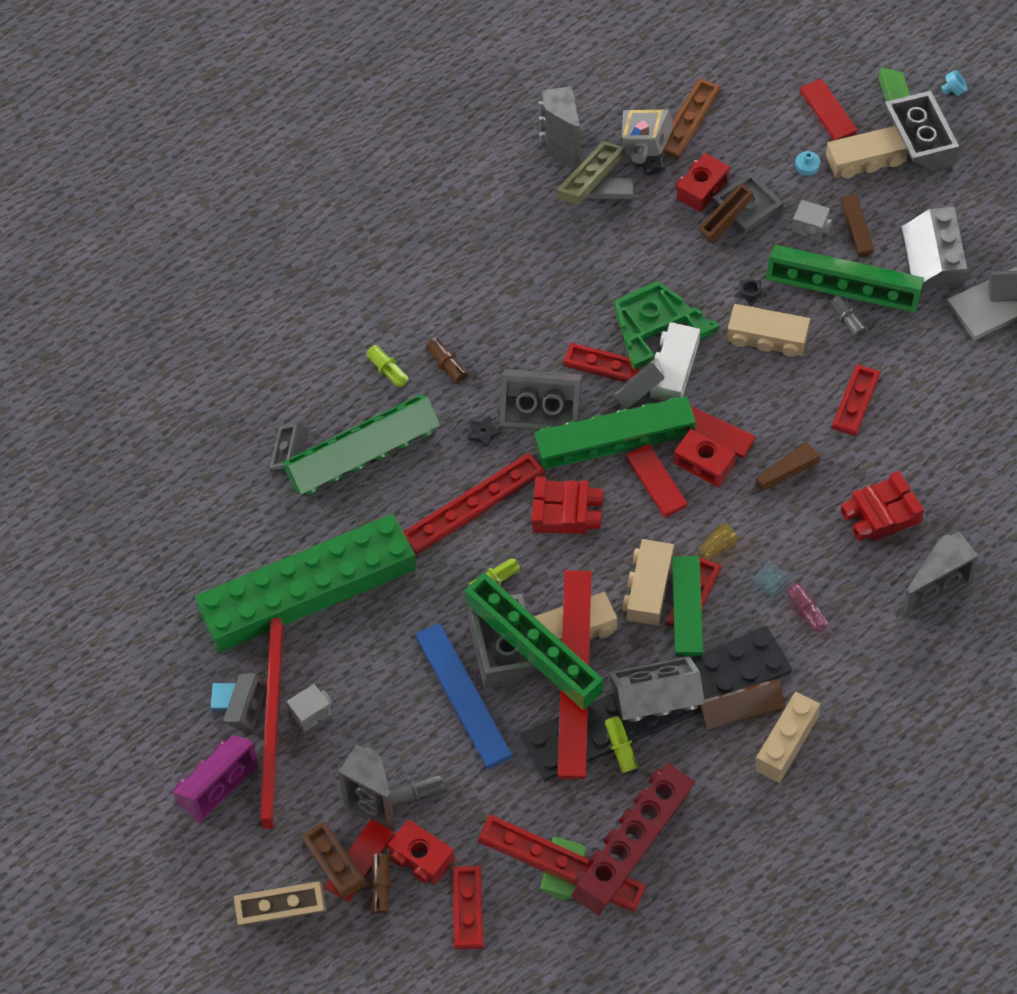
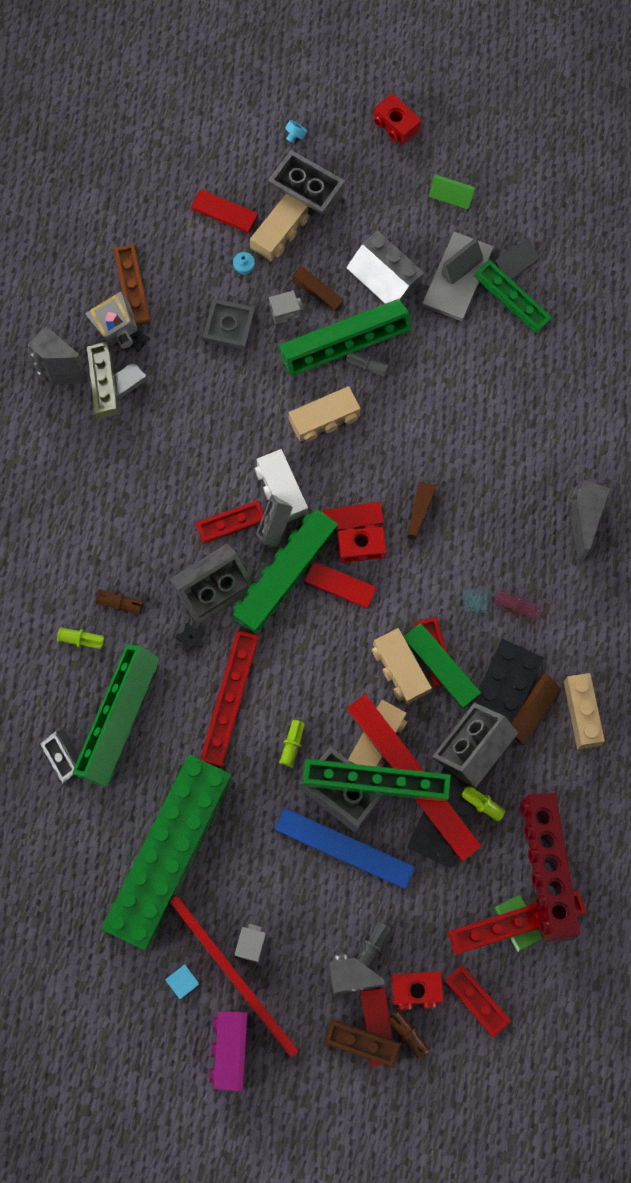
camera: 45 degrees left, 15 degrees up
(246, 703) = (202, 976): dark grey slope -> none
(279, 903) = (356, 1107): tan brick -> none
(564, 507) = (297, 653): red hips -> none
(649, 313) = (232, 460): green wing -> none
(702, 182) = (184, 318): red brick -> none
(719, 540) = (420, 600): clear yellow cone -> none
(725, 214) = (224, 344): reddish brown piece -> none
(750, 285) = (284, 385): black plate -> none
(856, 400) = (422, 424): red tile -> none
(883, 508) = (505, 501): red hips -> none
(893, 84) = (257, 163): bright green slope -> none

